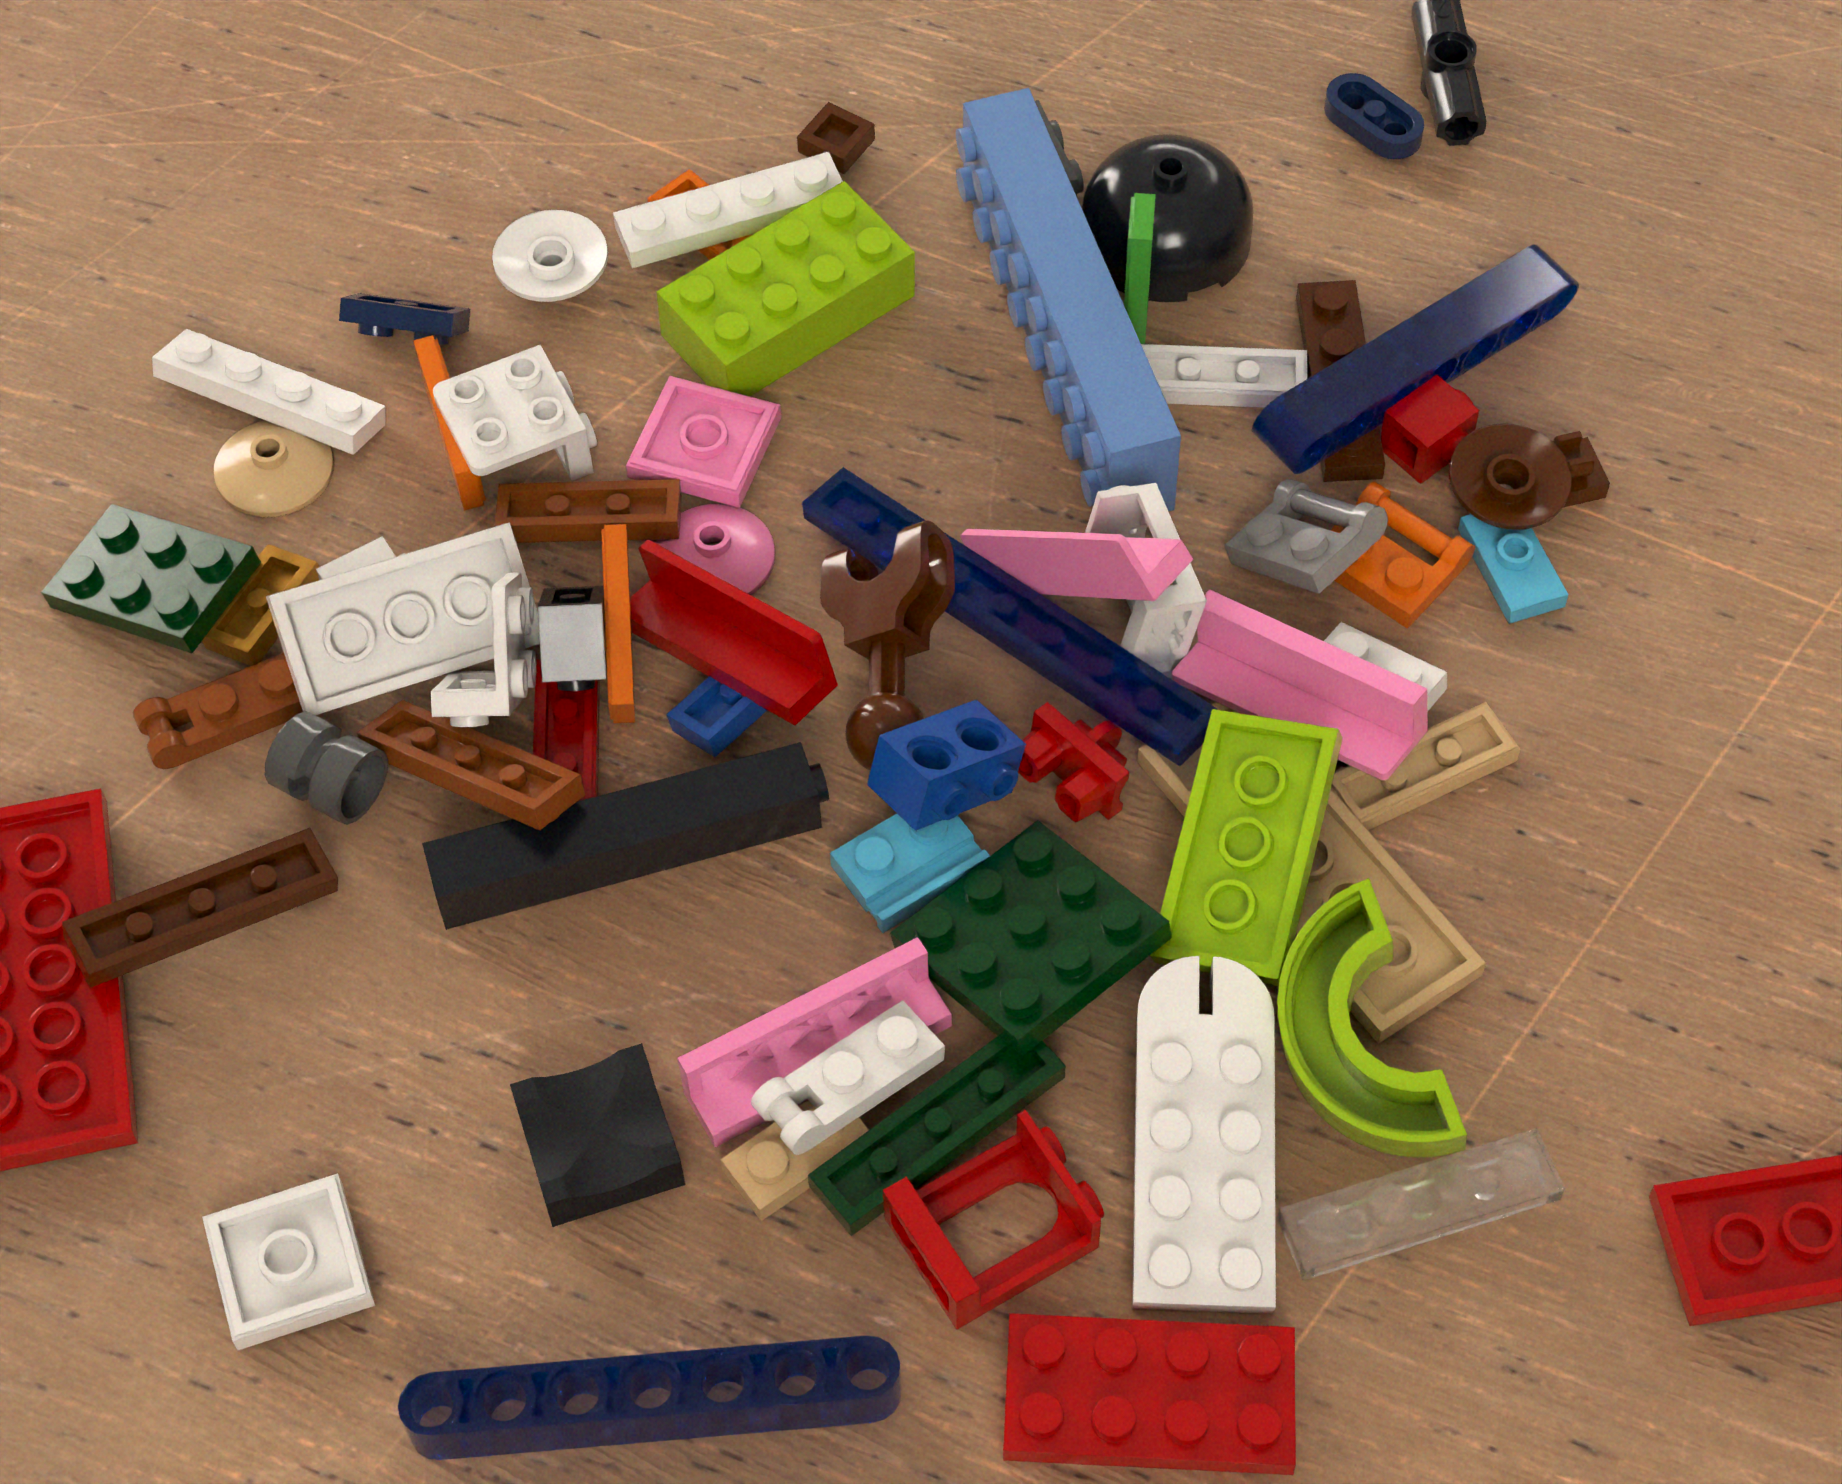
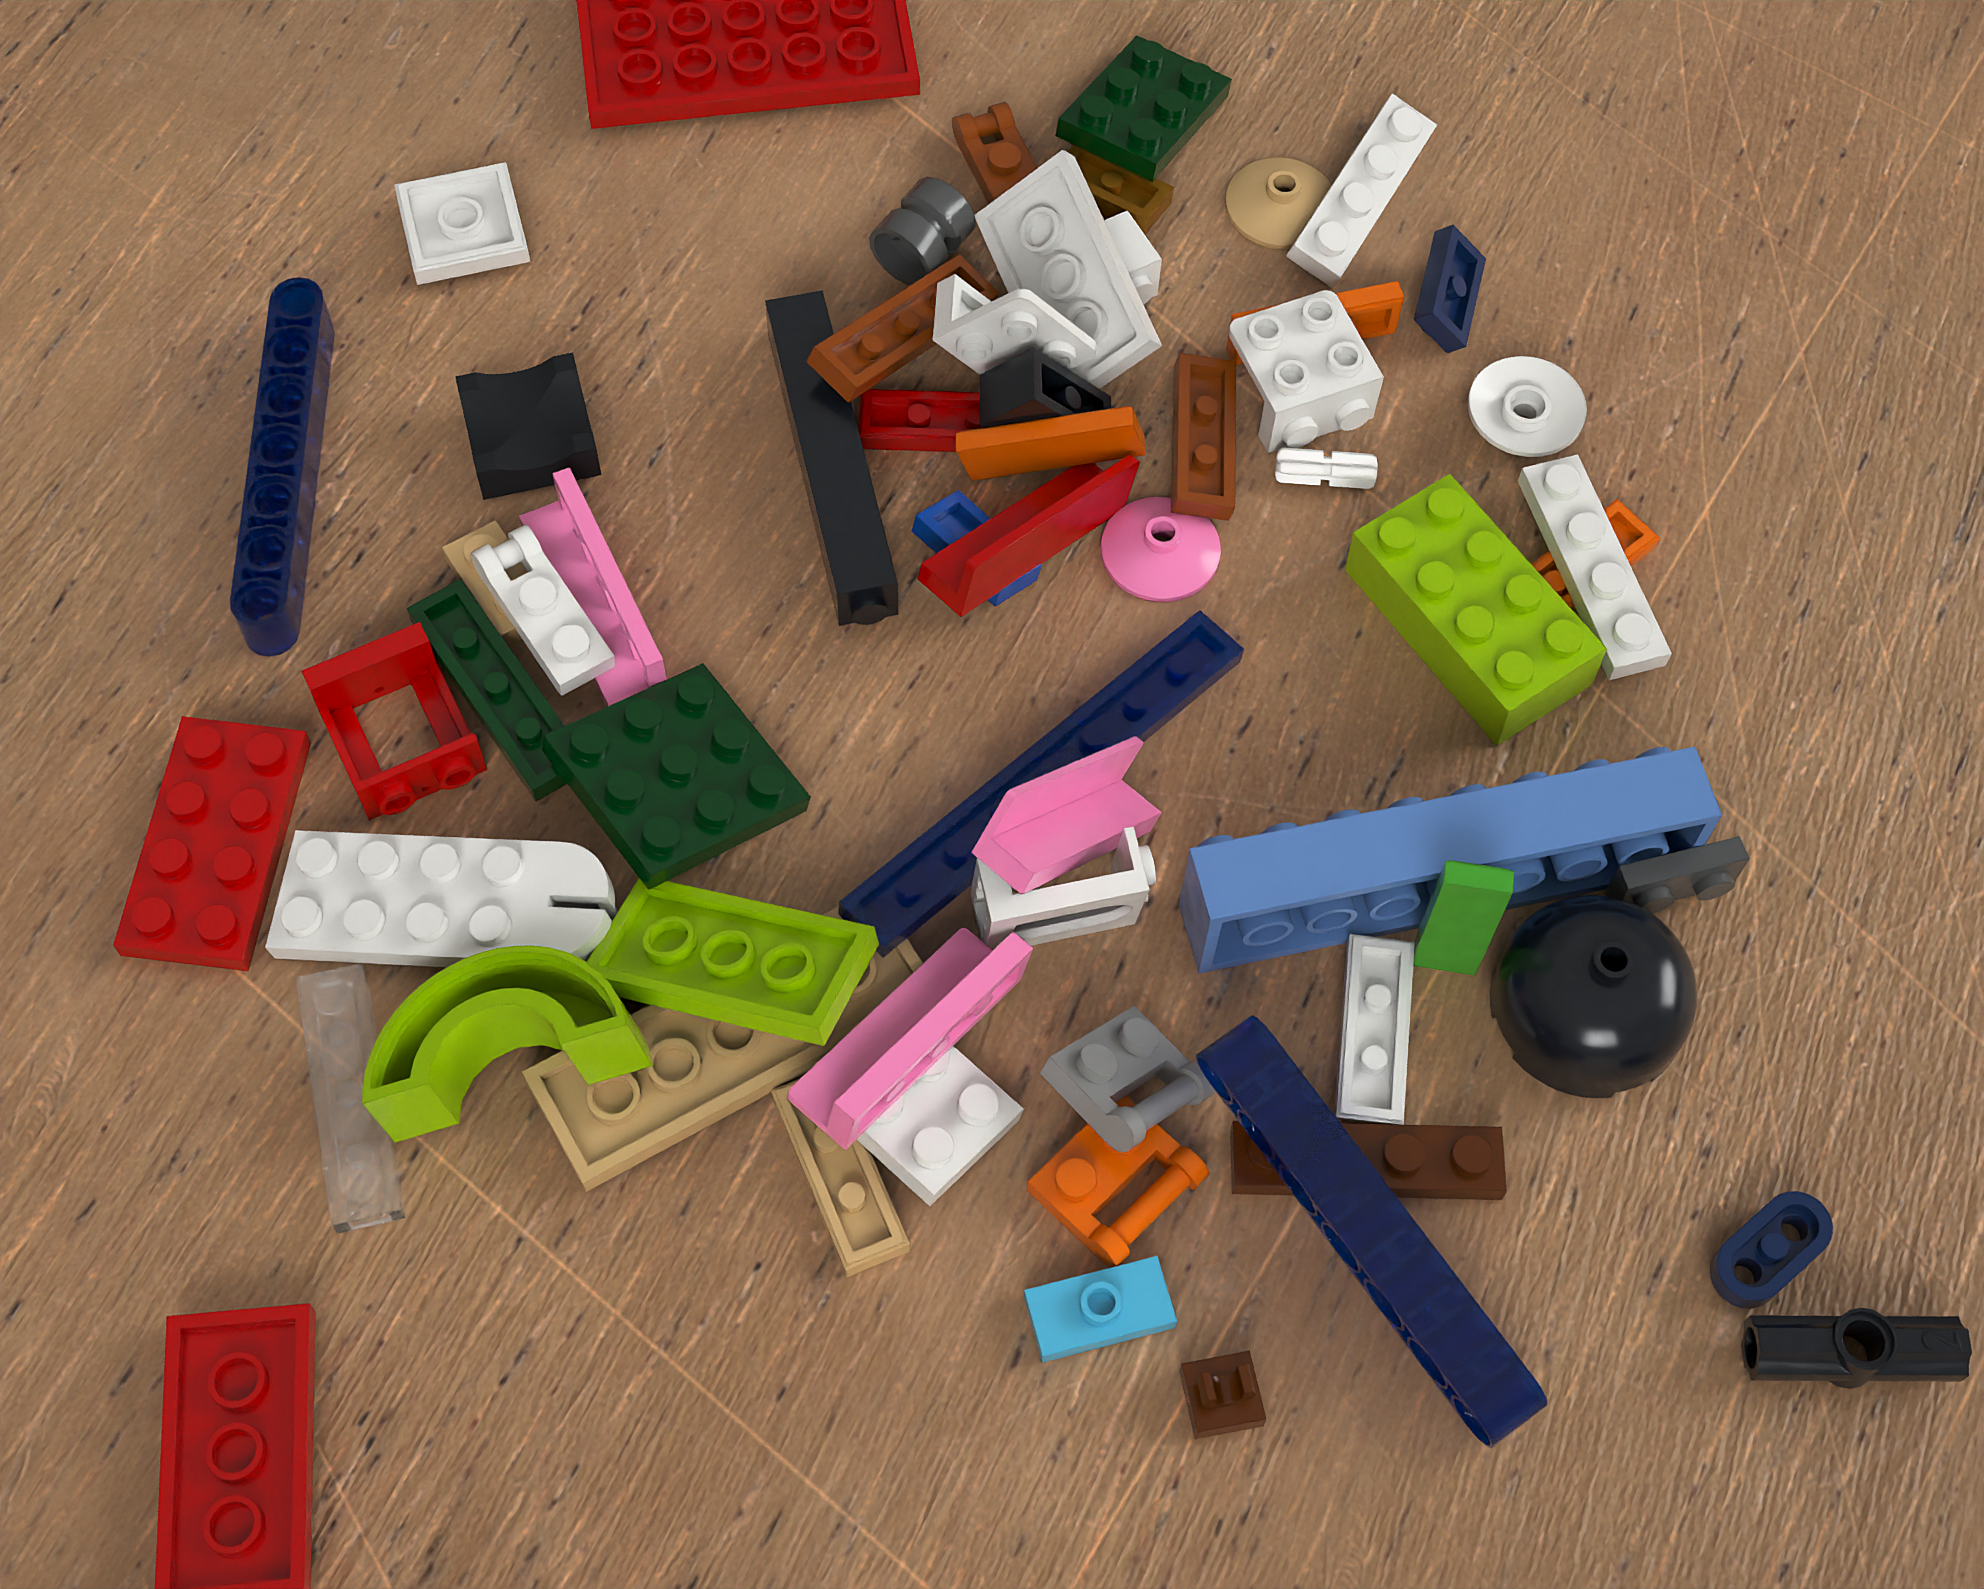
camera: 90 degrees right, 5 degrees up
(199, 907) = (789, 148): reddish brown plate -> none
(617, 422) = (1311, 467): none -> white piece
(705, 440) = (1289, 536): bright pink plate -> none
(838, 133) = (1706, 672): reddish brown plate -> none
(887, 621) = (1037, 666): reddish brown piece -> none
(903, 869) = (786, 690): medium azure plate -> none
(946, 764) = (876, 699): blue brick -> none
(1081, 758) = (887, 815): red hips -> none
(1427, 427) = (1279, 1239): red brick -> none
(1515, 458) = (1202, 1273): reddish brown dish -> none

